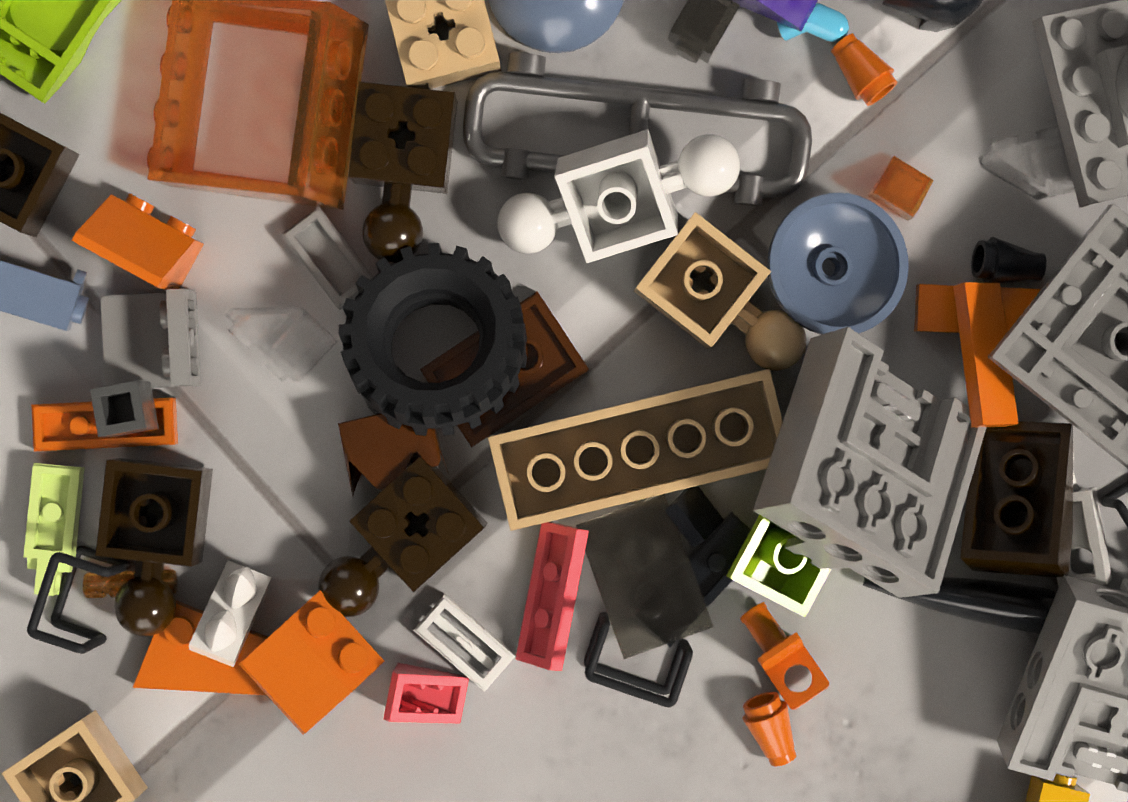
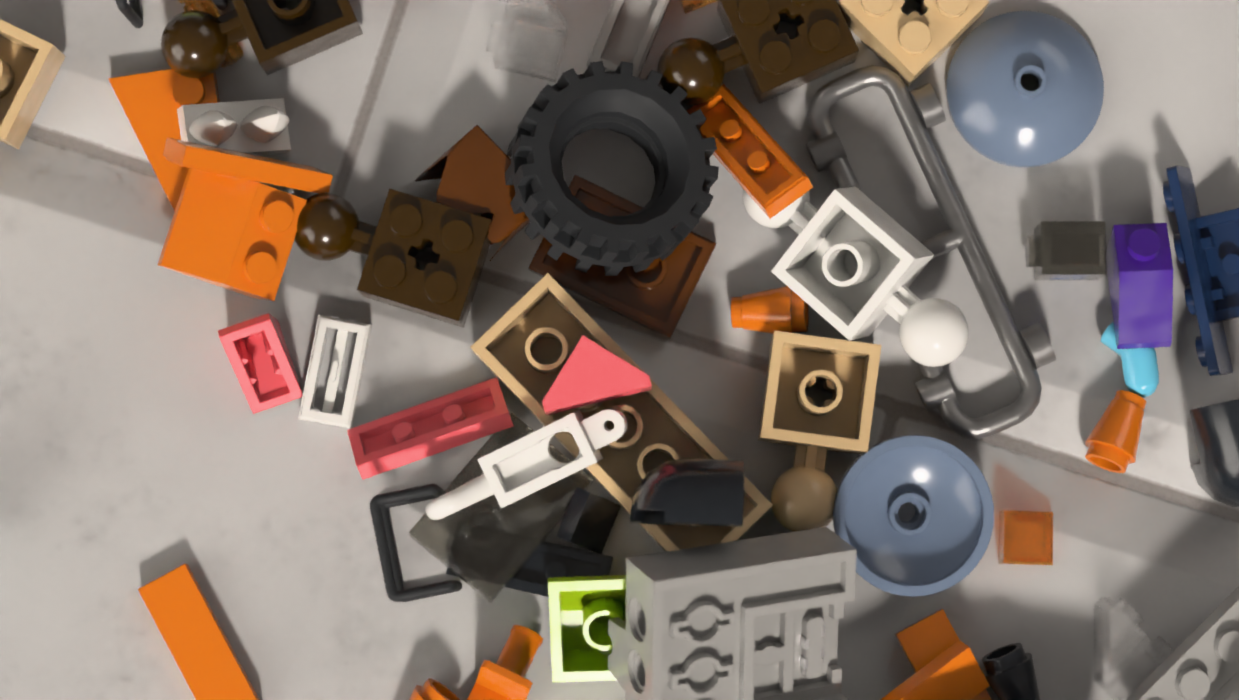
camera: 65 degrees right, 5 degrees down
(266, 622) = (247, 166): none -> orange tile
(486, 224) = (751, 153): none -> orange tile
(592, 450) = (593, 377): none -> coral slope
(615, 281) = (770, 311): none -> orange cone
(629, 540) = (528, 464): none -> white piece
(730, 428) = (691, 493): none -> black brick

